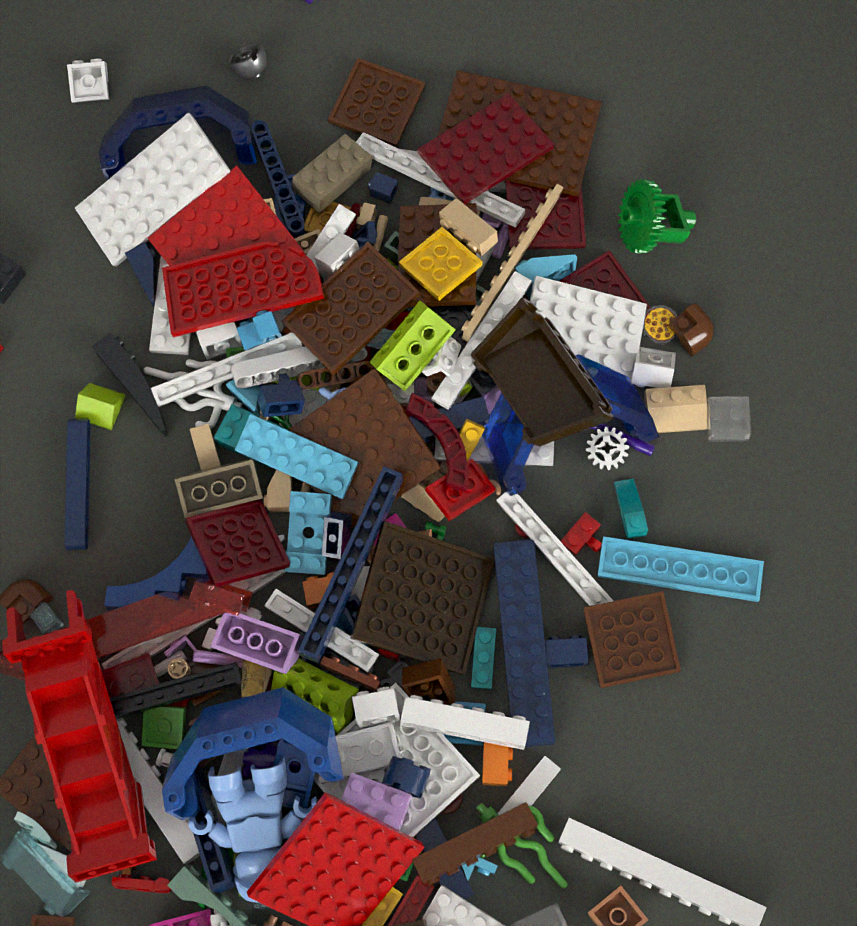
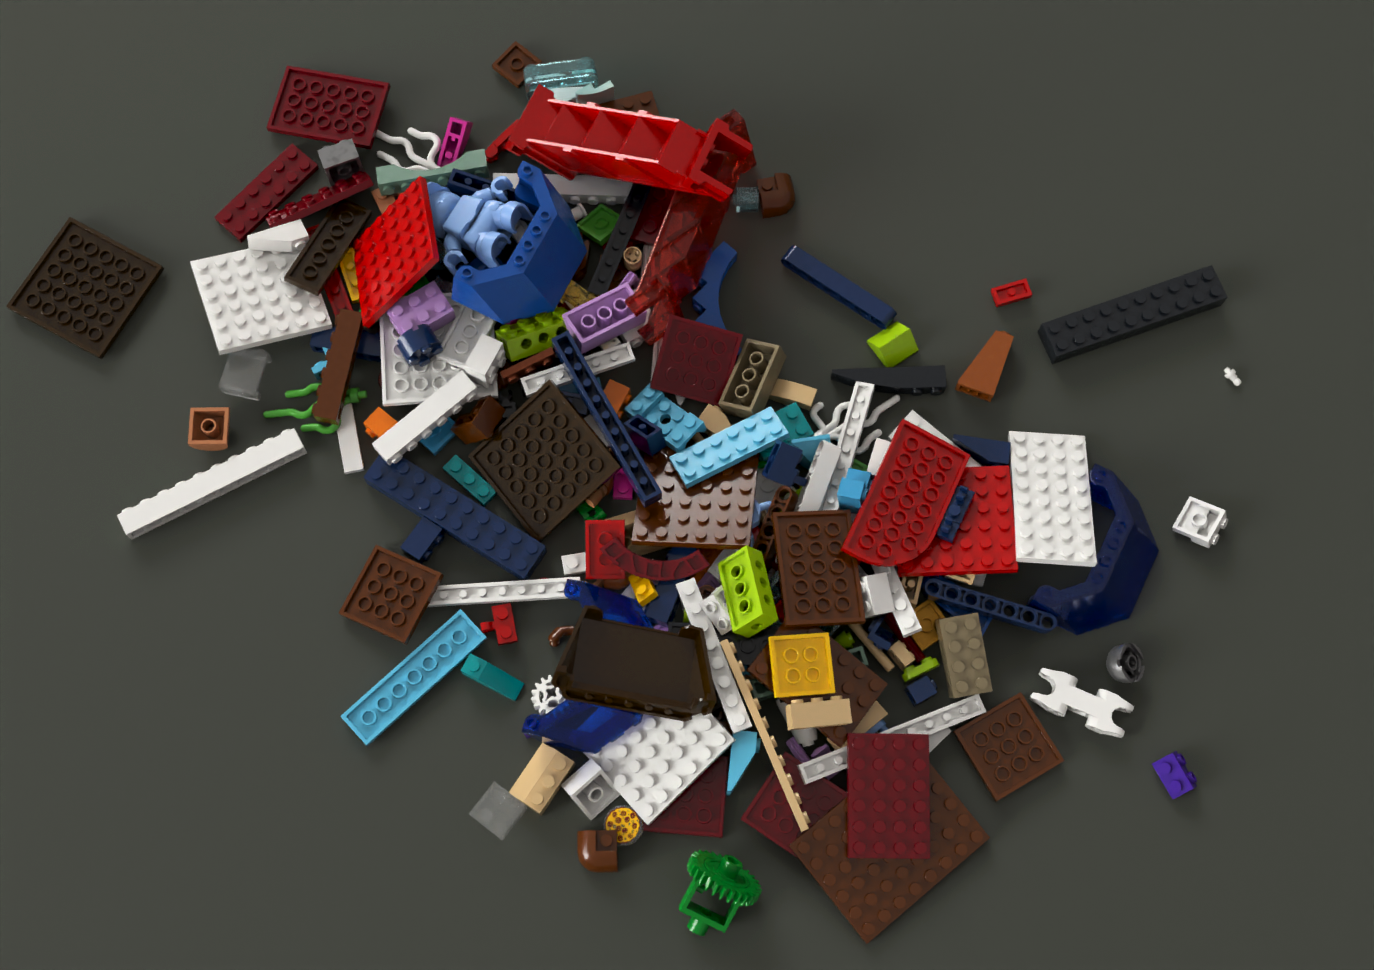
camera: 120 degrees right, 0 degrees up
(66, 317) = (985, 370): none -> dark orange slope
(222, 243) = (955, 513): none -> dark blue plate
(306, 88) = (1068, 697): none -> white piece
(361, 196) = (913, 672): none -> lime plate
(484, 516) = (574, 564): none -> white plate
(556, 485) = (558, 633): none -> reddish brown arm

